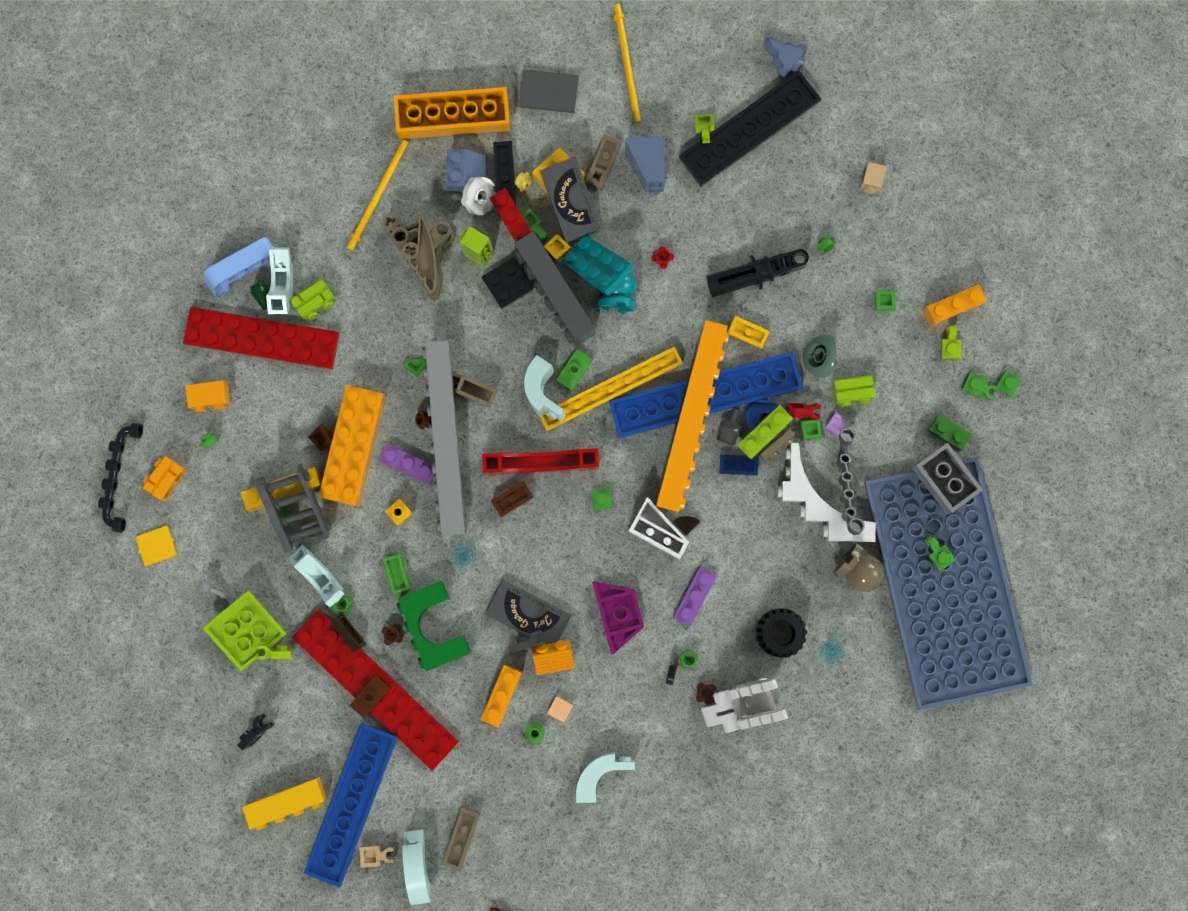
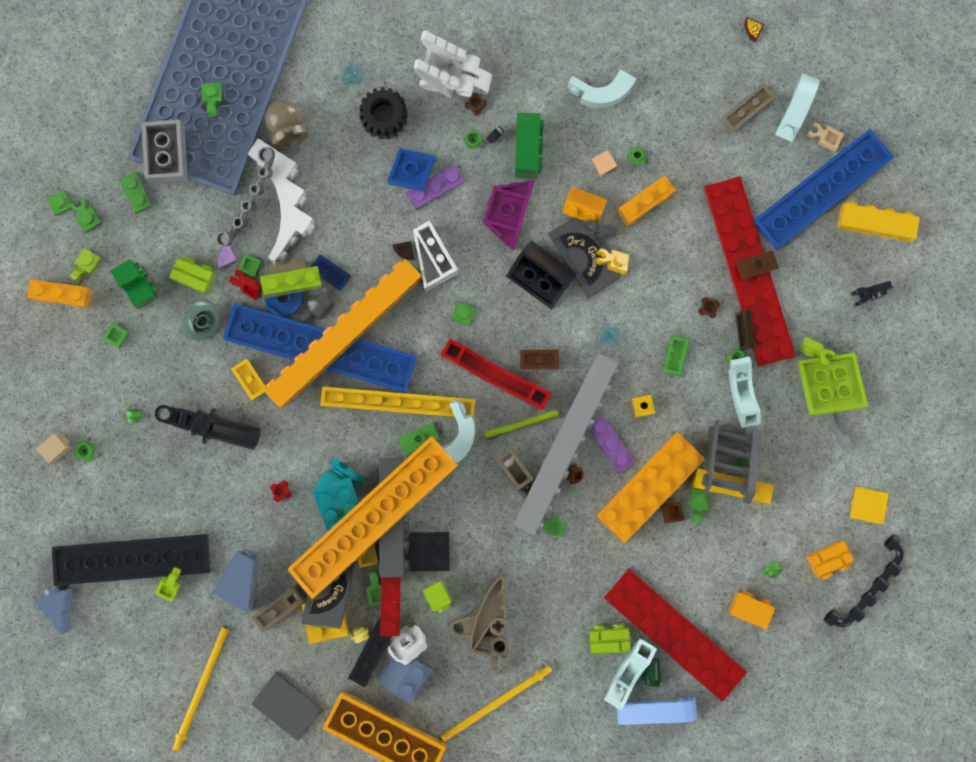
camera: 150 degrees left, 0 degrees up
(303, 457) = (698, 502): none -> bright green plate
(413, 607) = (684, 270): green arch -> none
(496, 433) = (521, 424): none -> lime bar
(497, 625) = (616, 260): none -> yellow plate
(554, 574) = (541, 274): none -> black slope
(568, 276) = (372, 517): none -> light orange plate
(635, 681) = (528, 145): none -> green brick
(724, 597) = (411, 170): none -> blue plate
(846, 187) = (80, 451): none -> bright green plate
(897, 353) = (132, 279): none -> green brick

